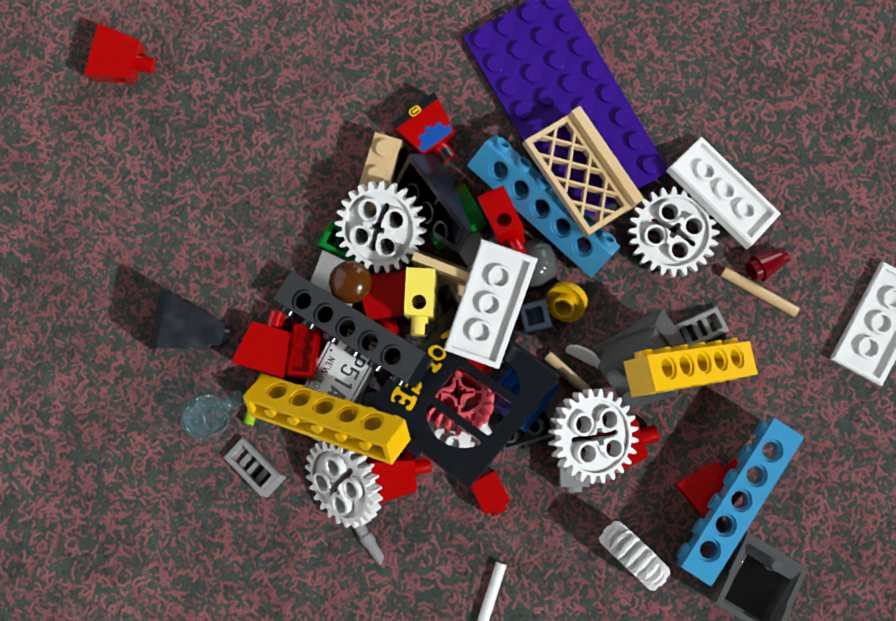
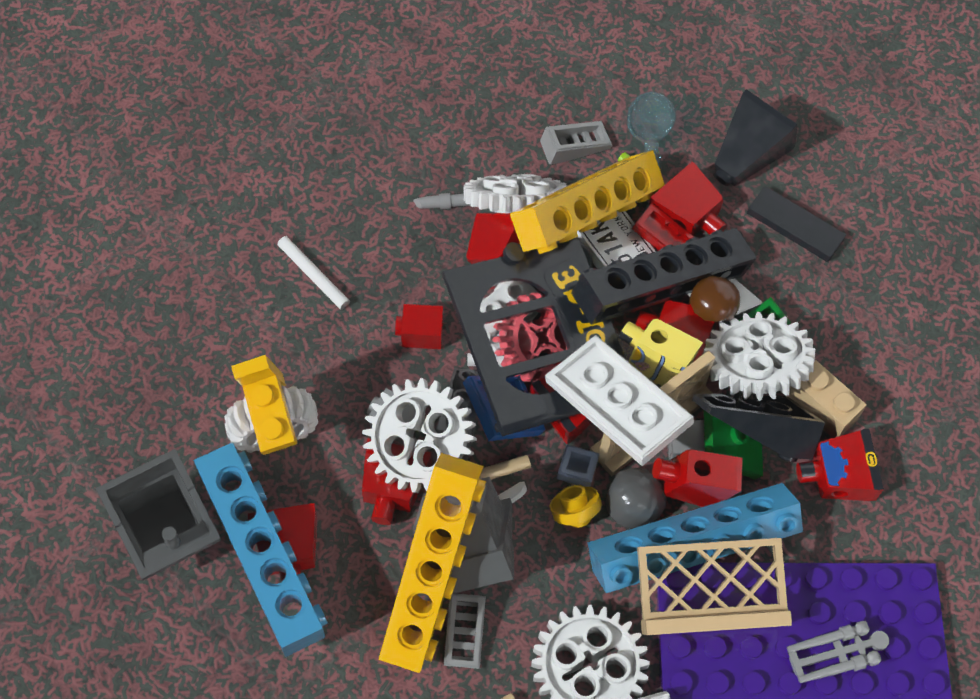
camera: 115 degrees right, 20 degrees down
(234, 259) = (796, 224): none -> black tile
(546, 49) = (878, 641): none -> light grey piece
(645, 557) = (266, 403): none -> yellow bracket

